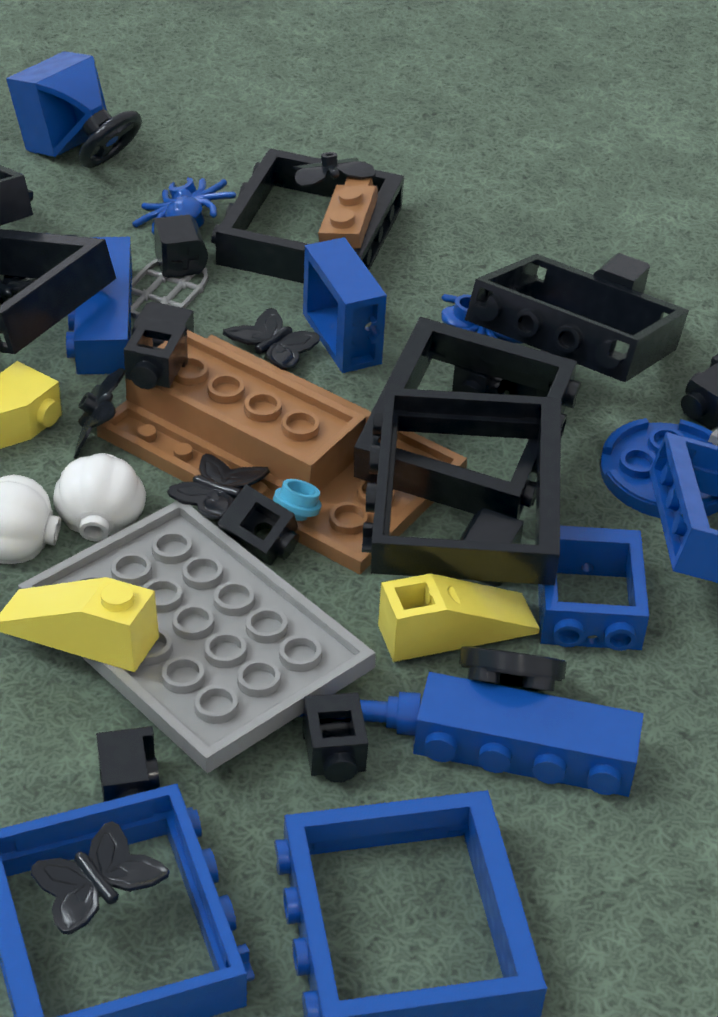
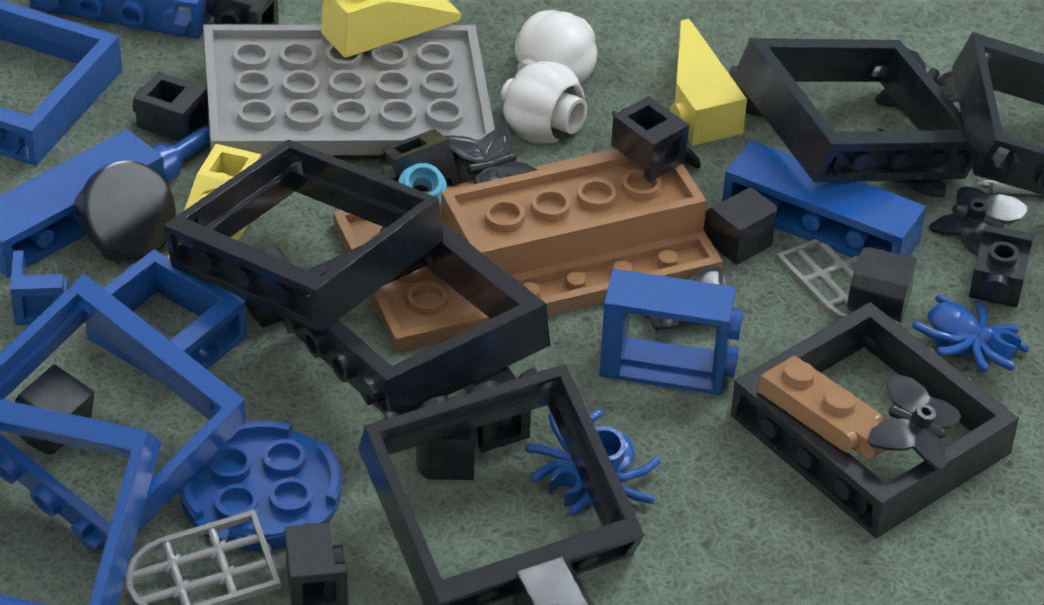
camera: 125 degrees right, 0 degrees up
(99, 211) = (1001, 266): none -> black brick
(651, 685) = (32, 293): none -> blue panel

